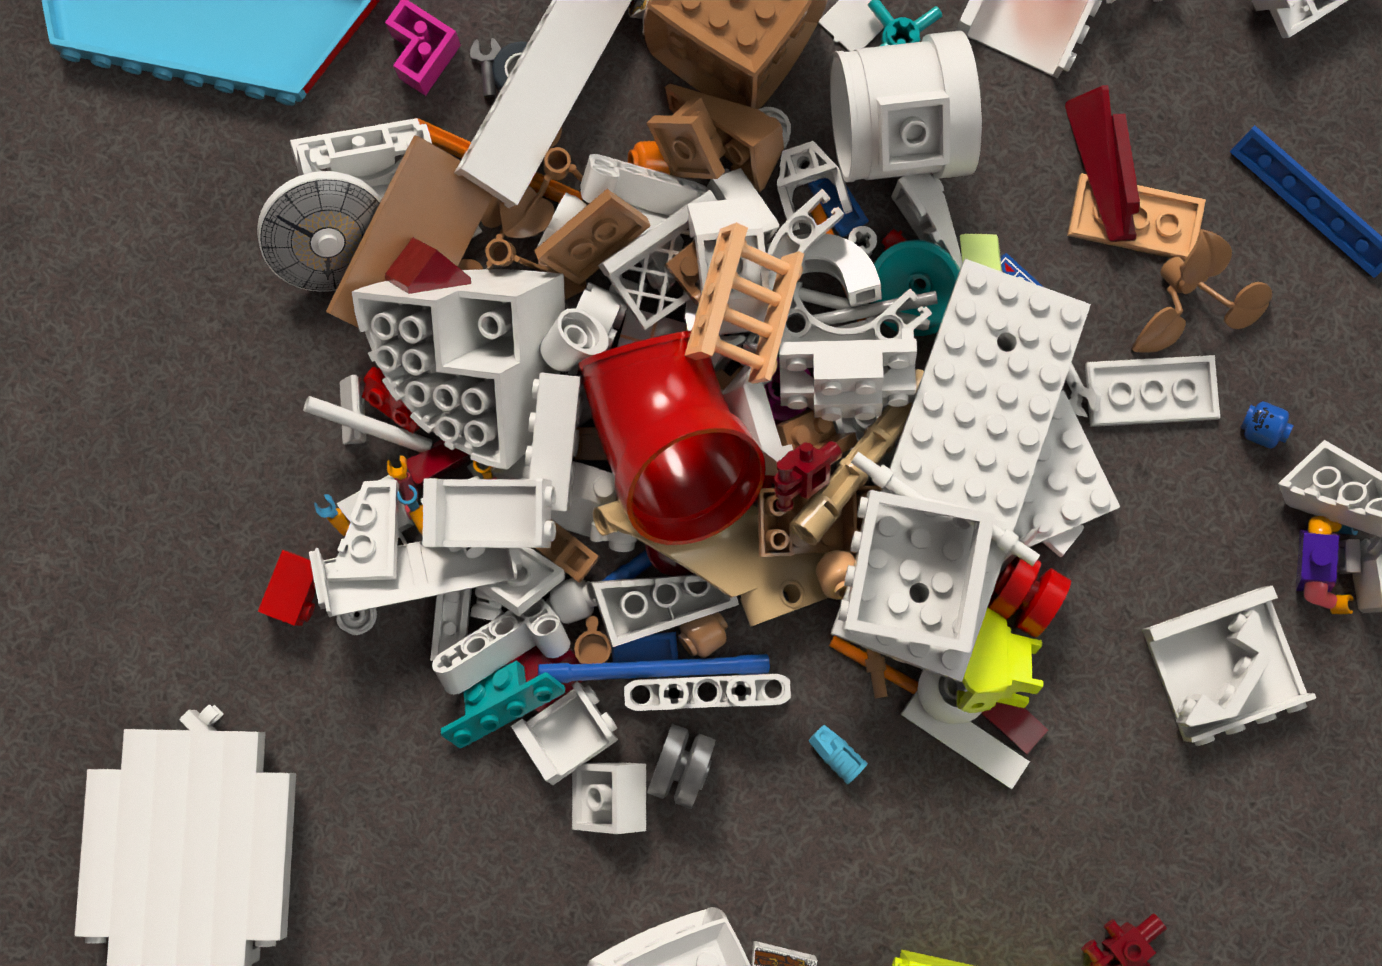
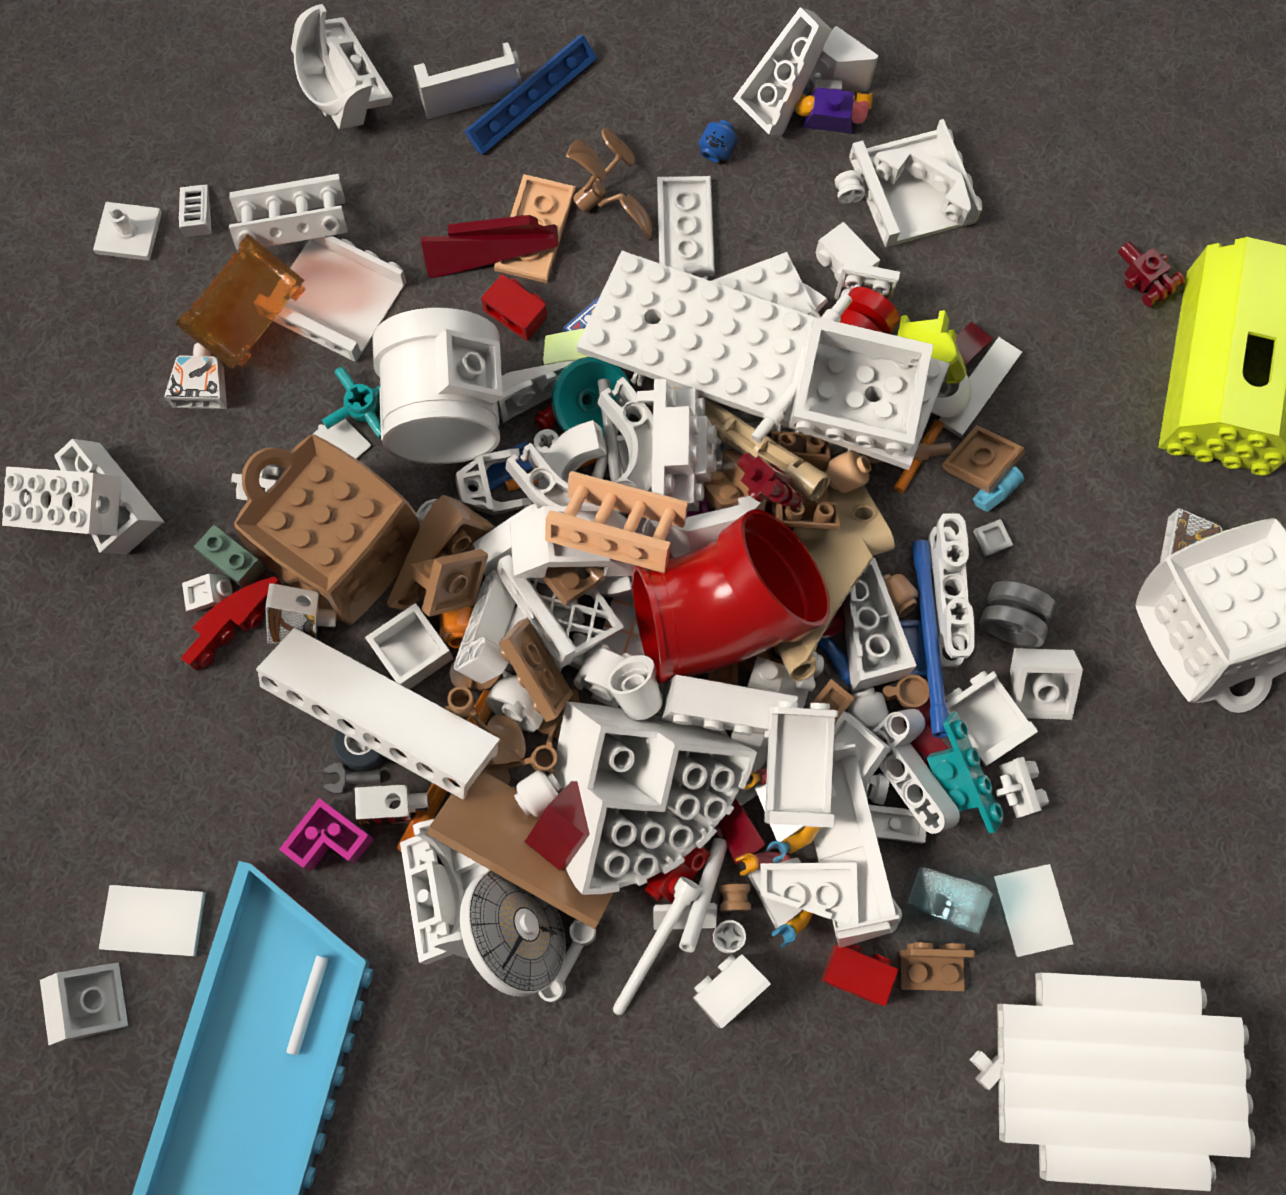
camera: 90 degrees left, 10 degrees down
(260, 44) = (307, 1005): none -> white bar
(273, 455) = (730, 990): none -> white slope
(281, 287) = (585, 937): none -> white bar
(302, 666) = (932, 968): none -> medium nougat bracket
(323, 453) = (733, 936): none -> white wheel
(365, 778) = (1033, 910): none -> white window
(366, 404) = (685, 893): none -> white piece
(366, 682) = (950, 899): none -> clear light blue piece
(369, 461) = (735, 897): none -> medium nougat wheel
(453, 92) = (375, 802): none -> white torso
(465, 249) = (537, 792): none -> white head
(491, 762) = (1019, 787): none -> white hips
(621, 111) = (409, 647): none -> white piece
(779, 747) = (993, 537): none -> white tile
(871, 737) = (983, 458): none -> medium nougat tile
(1028, 197) = (514, 306): none -> red brick
(1079, 604) = (860, 275): none -> white tile
(1121, 580) = (841, 246): none -> white brick
(1216, 584) = (849, 187): none -> white wheel
(1313, 124) = (468, 85): none -> white panel

